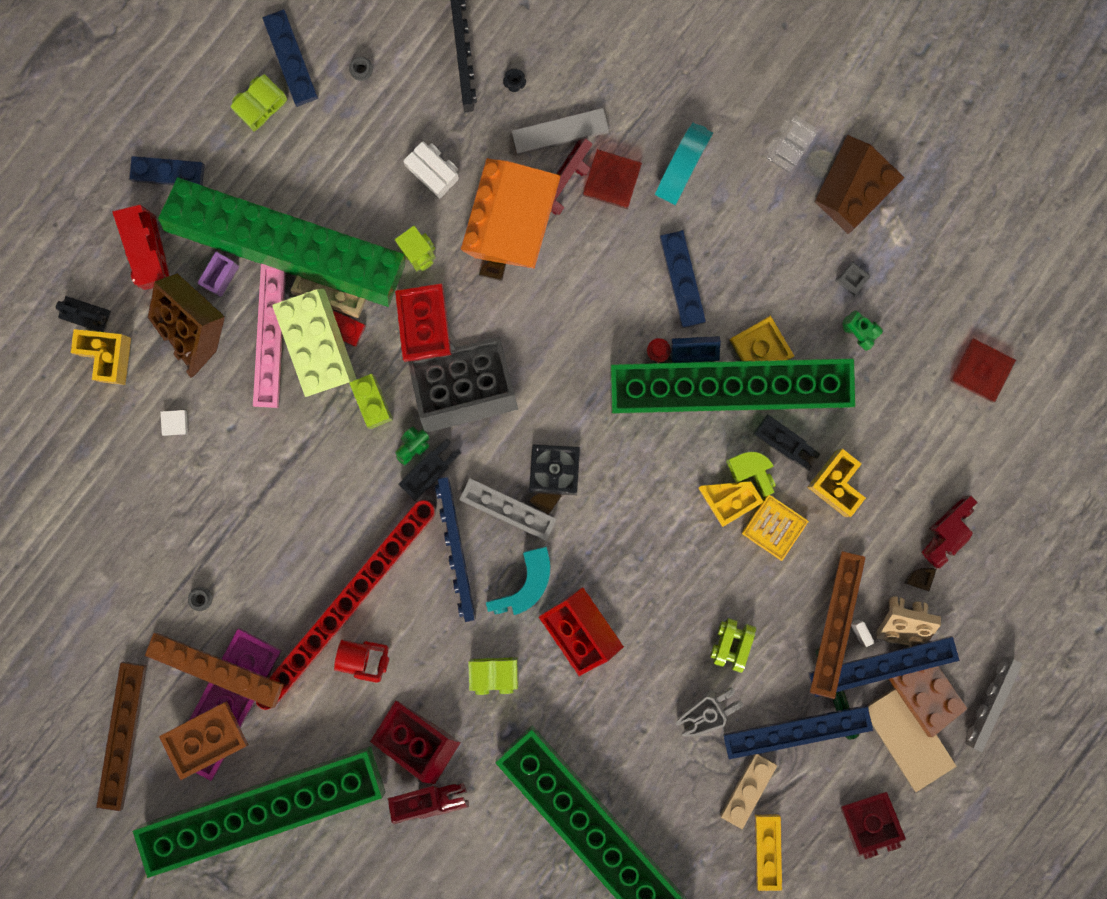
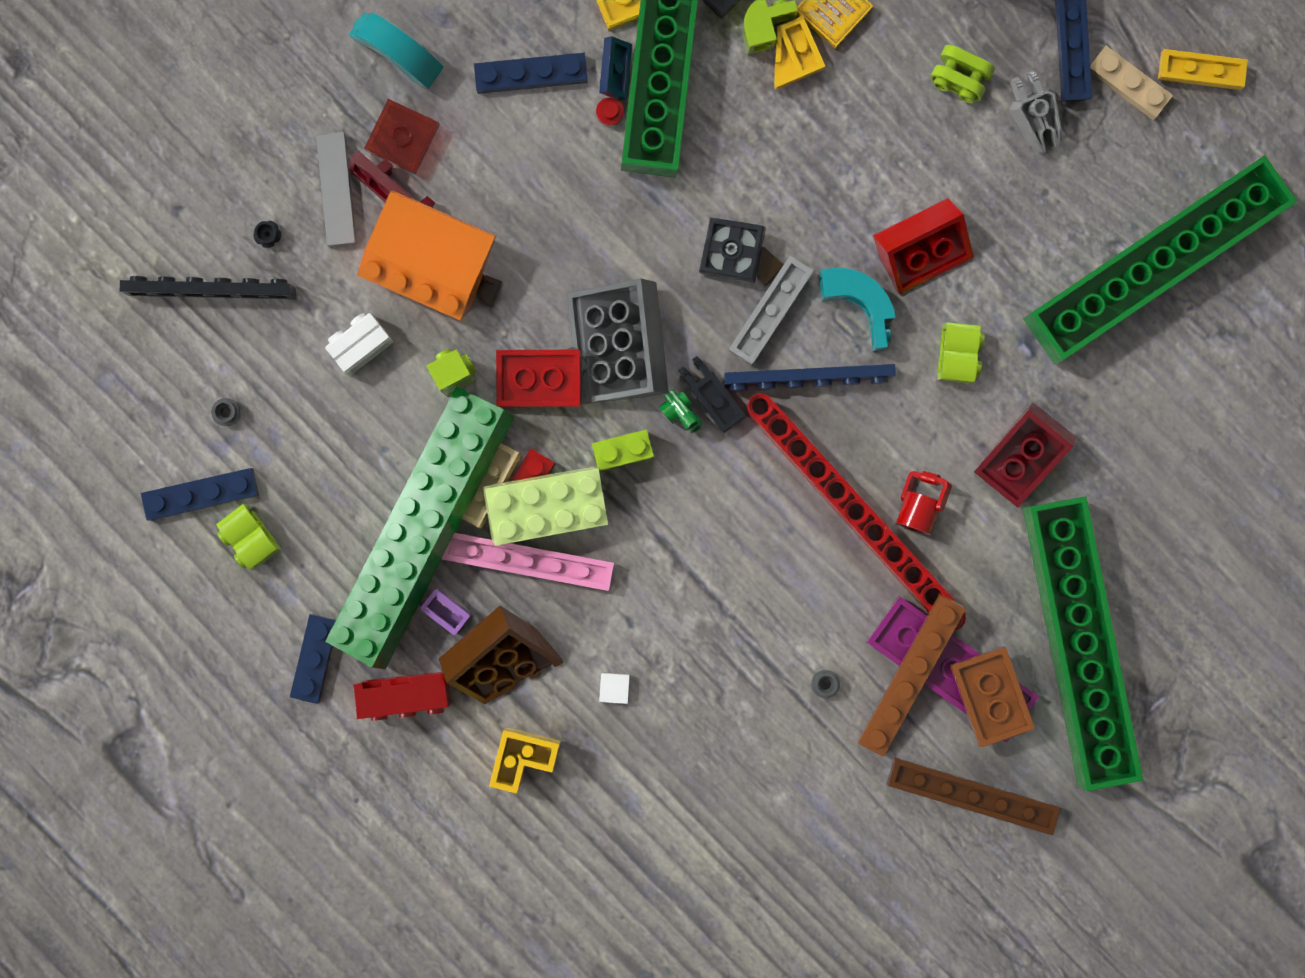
camera: 80 degrees left, 0 degrees up
(83, 313) = (470, 778): black hinge -> none
(426, 803) = (1097, 448): dark red plate -> none

